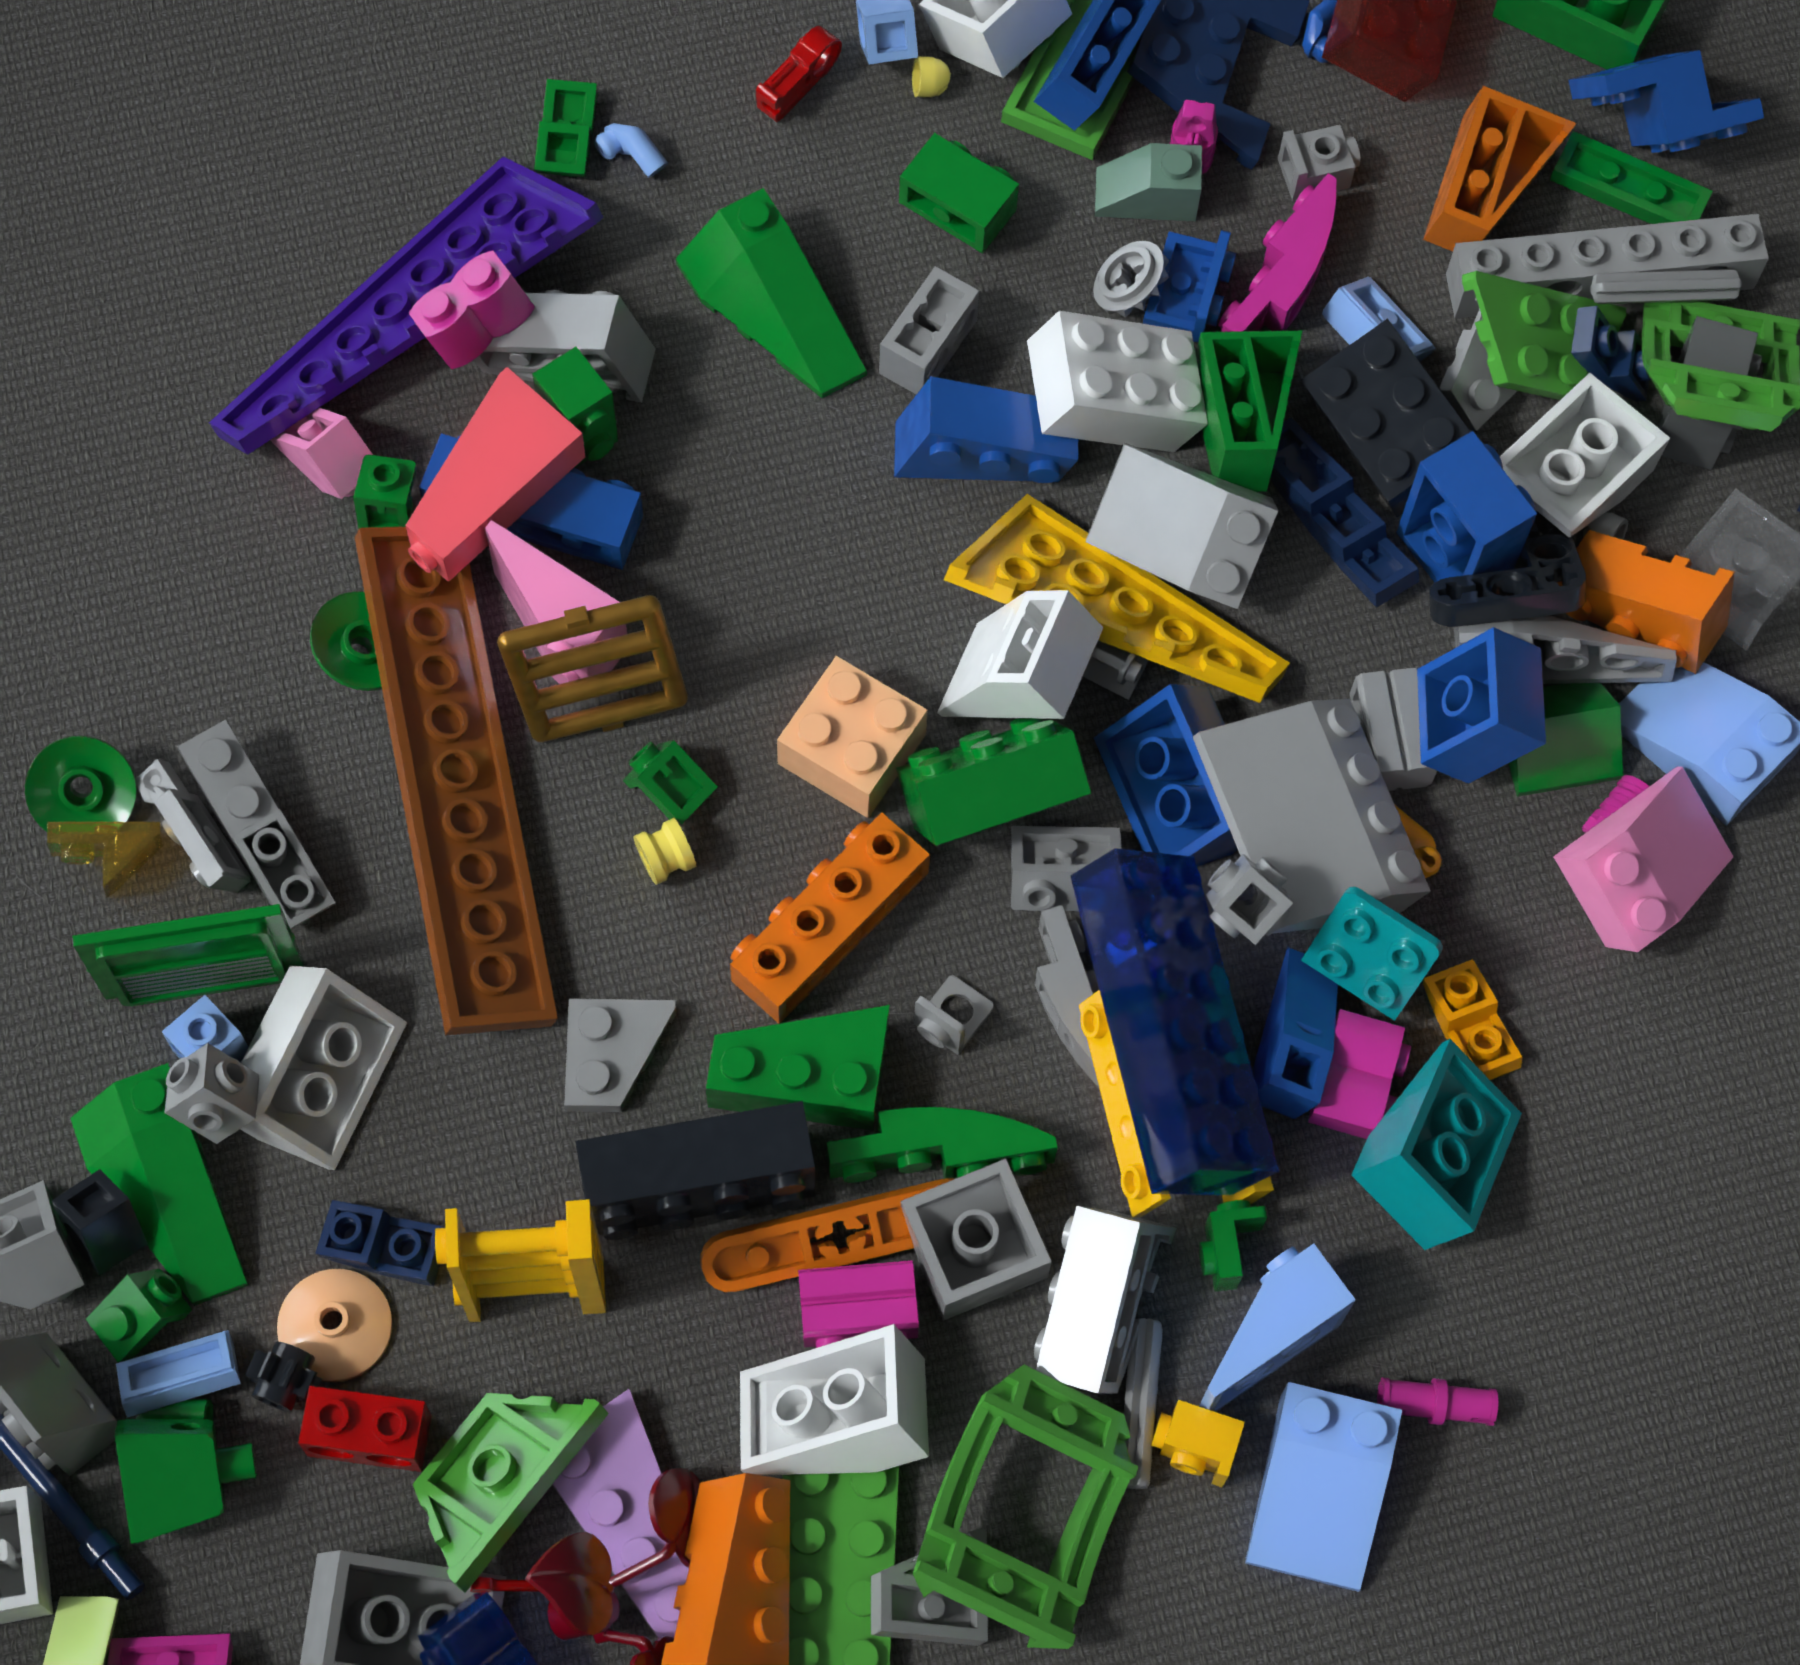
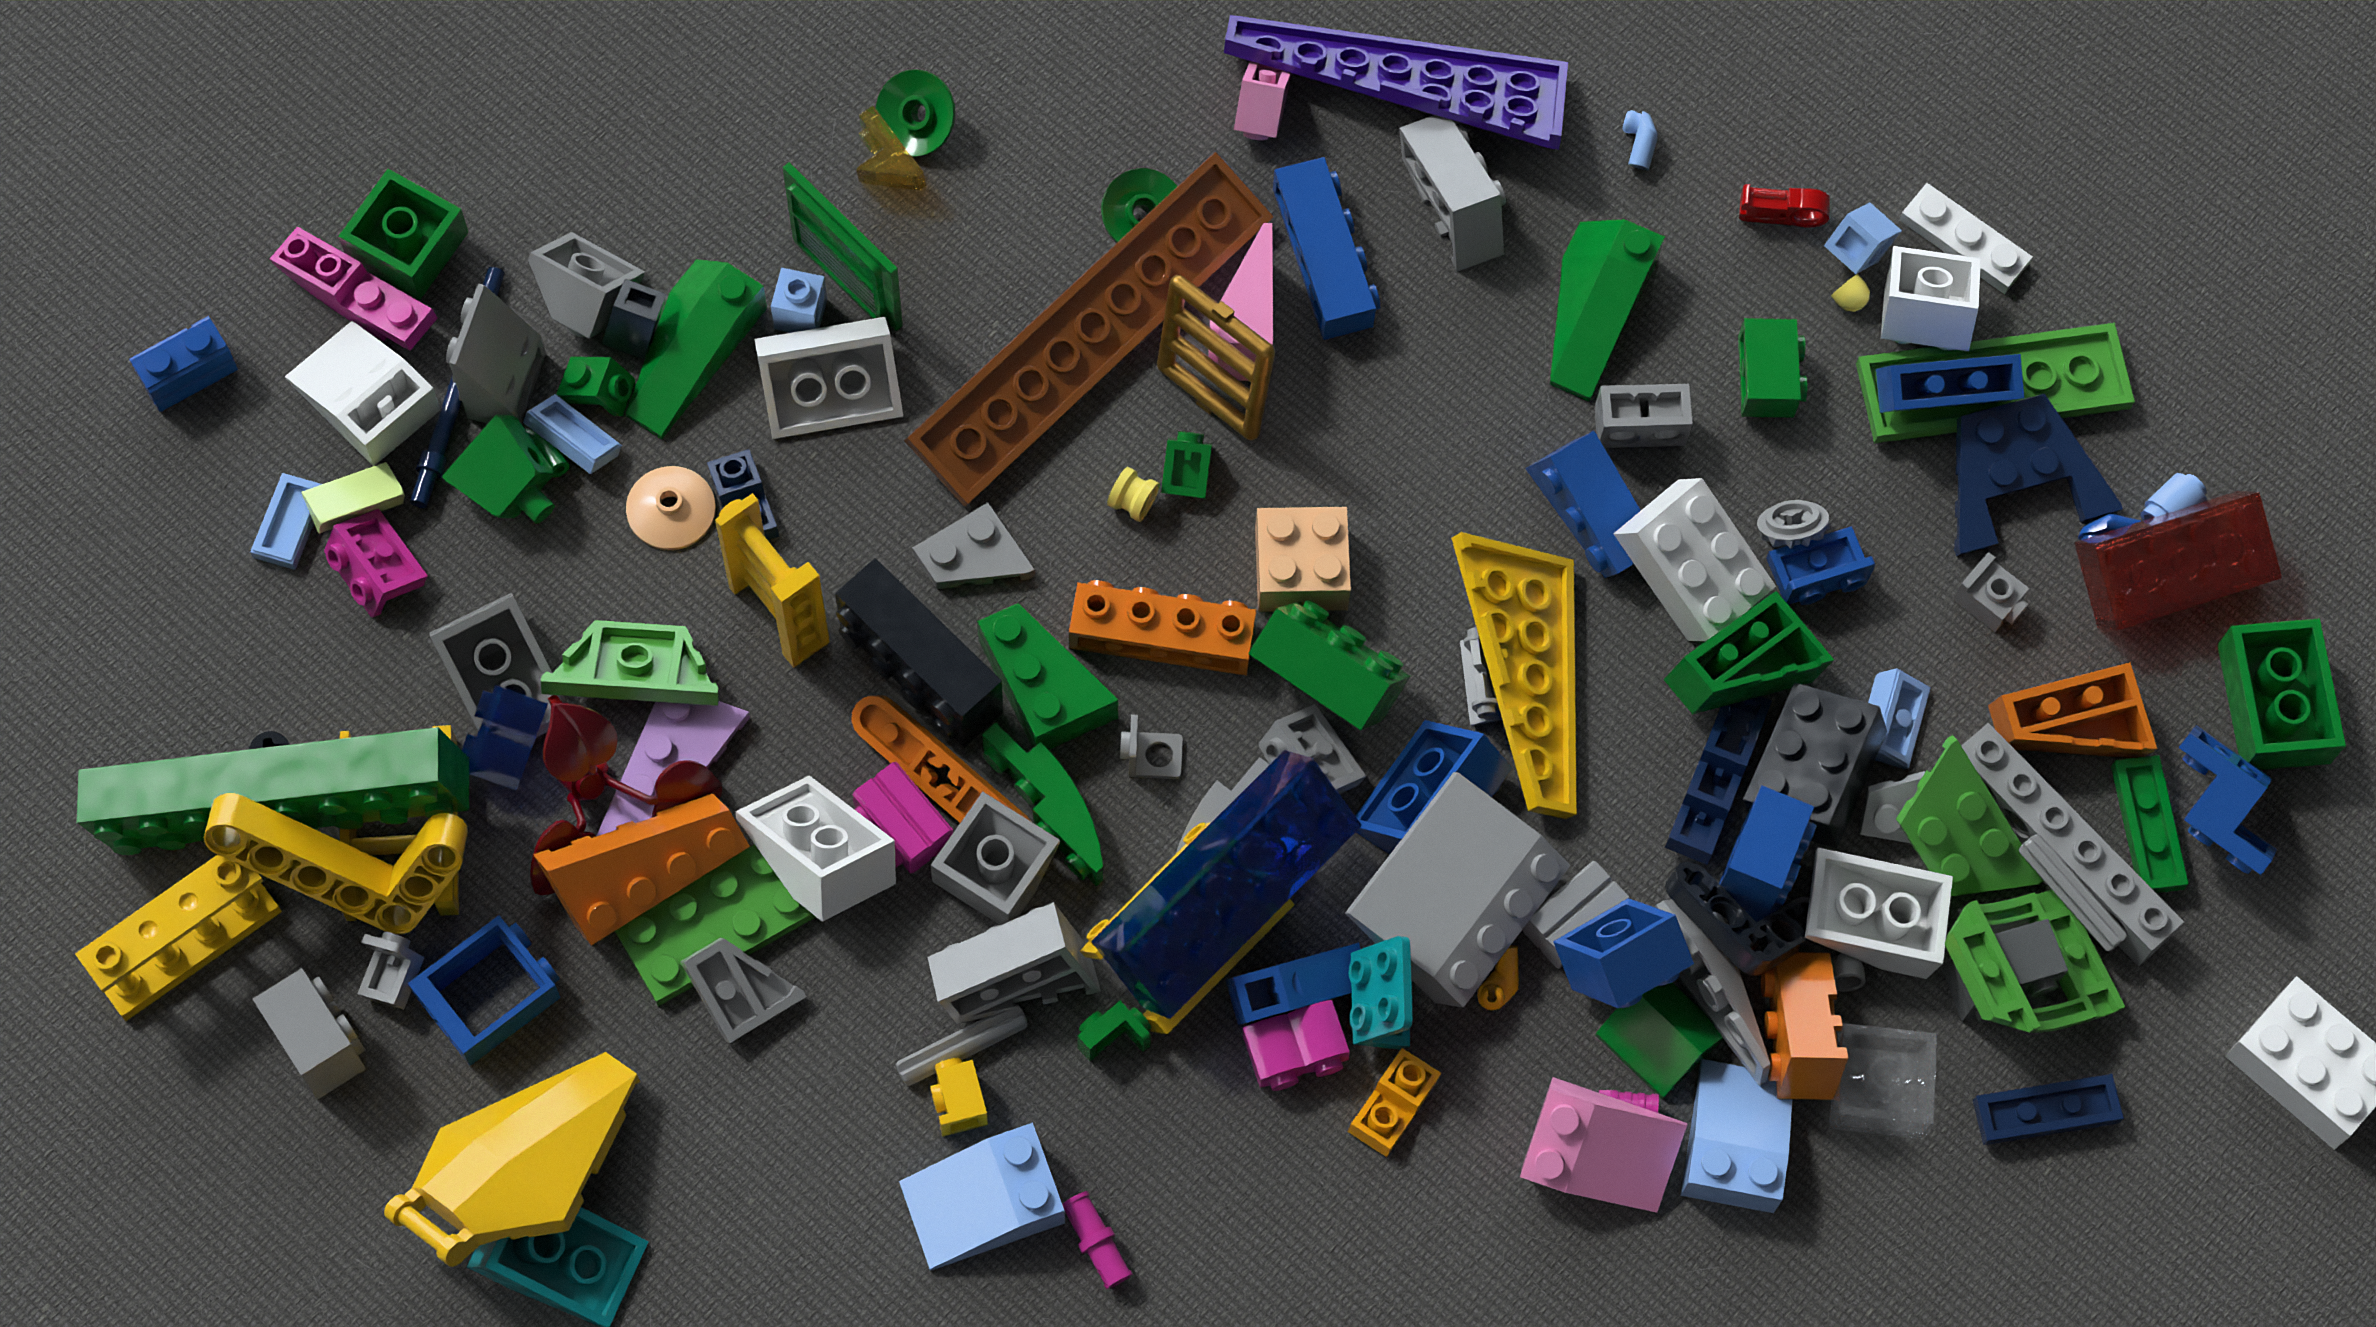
camera: 55 degrees right, 0 degrees up
(193, 828) = (938, 198): light grey hinge -> none
(211, 1093) = (757, 321): light grey brick -> none
(255, 824) = (967, 234): light grey slope -> none
(282, 1376) = (611, 496): black gear -> none
(365, 1428) = (610, 567): red brick -> none
(384, 492) = (1254, 151): green bracket -> none
(471, 310) = (1421, 112): dark pink brick -> none
(495, 472) = (1309, 205): coral slope -> none
(566, 128) = (1623, 90): green slope -> none
(582, 398) = (1407, 227): green brick -> none
(993, 1581) = (766, 1015): bright green wedge -> none
(1024, 659) = (1432, 631): white slope -> none
(1151, 183) = (1883, 494): sand green slope -> none
(1182, 524) = (1618, 672): slope -> none
(1197, 126) = (1938, 497): dark pink hinge -> none
(1255, 916) = (1349, 874): light grey brick -> none
(1289, 264) = (1900, 628): dark pink slope -> none
(1292, 1311) = (1067, 1091): light blue slope -> none
(1439, 1149) = (1279, 1127): teal slope -> none
(1610, 354) = (1987, 873): dark blue slope -> none

